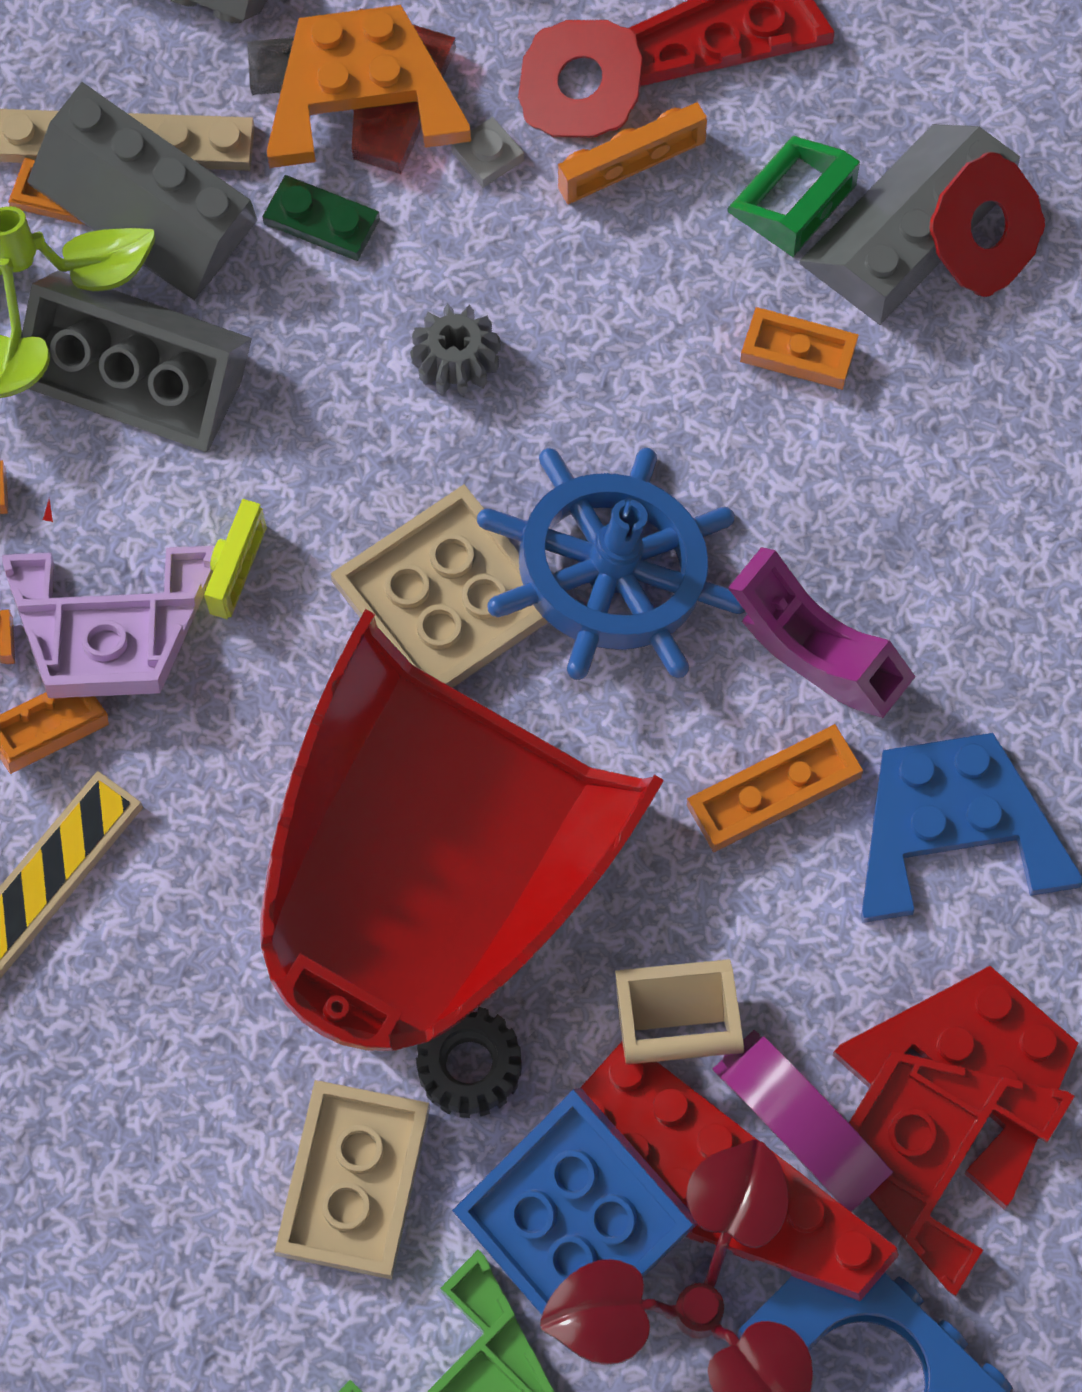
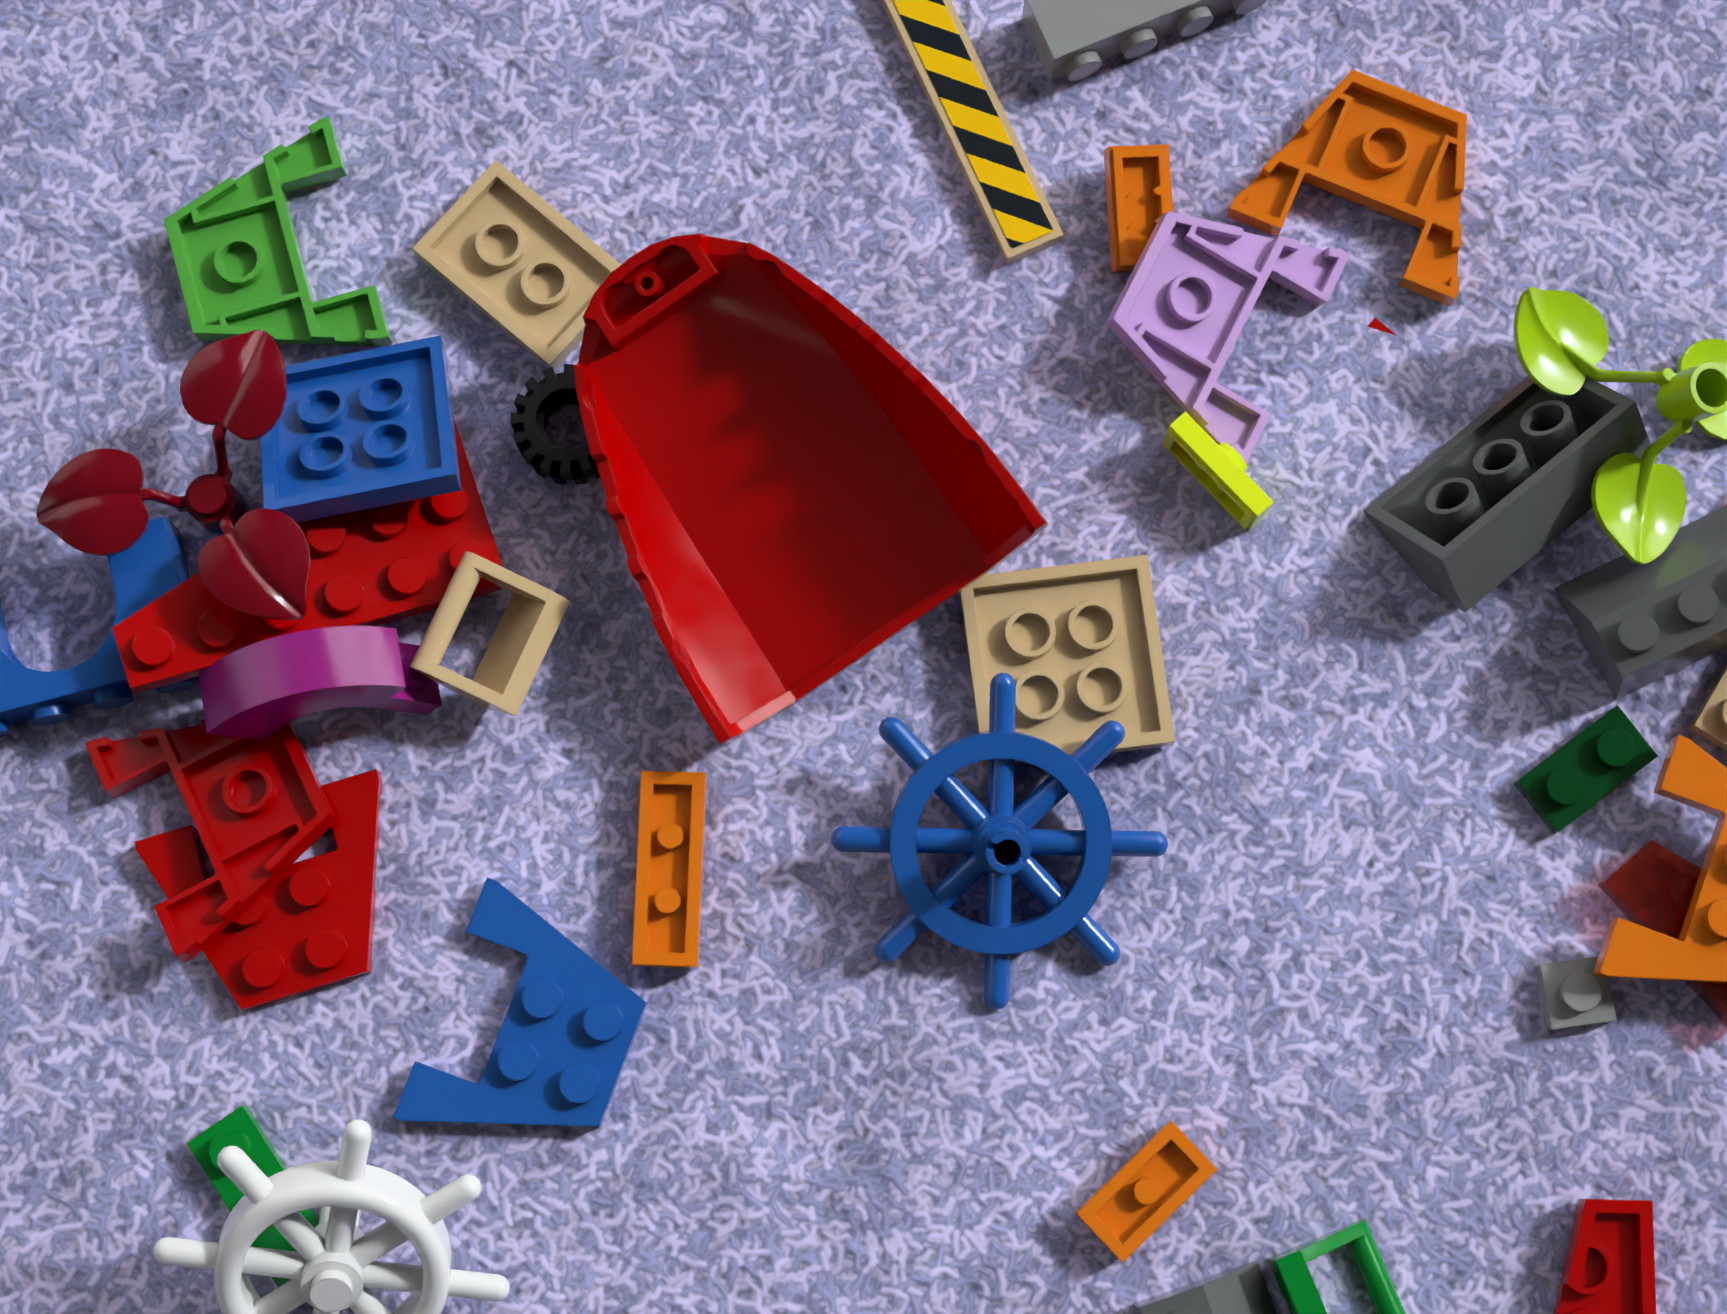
camera: 120 degrees right, 10 degrees up
(456, 363) = (1322, 801): dark grey gear -> none
(609, 106) = (1613, 1200): red piece -> none
(631, 152) = (1488, 1147): orange plate -> none
(839, 660) = (790, 1001): magenta arch -> none

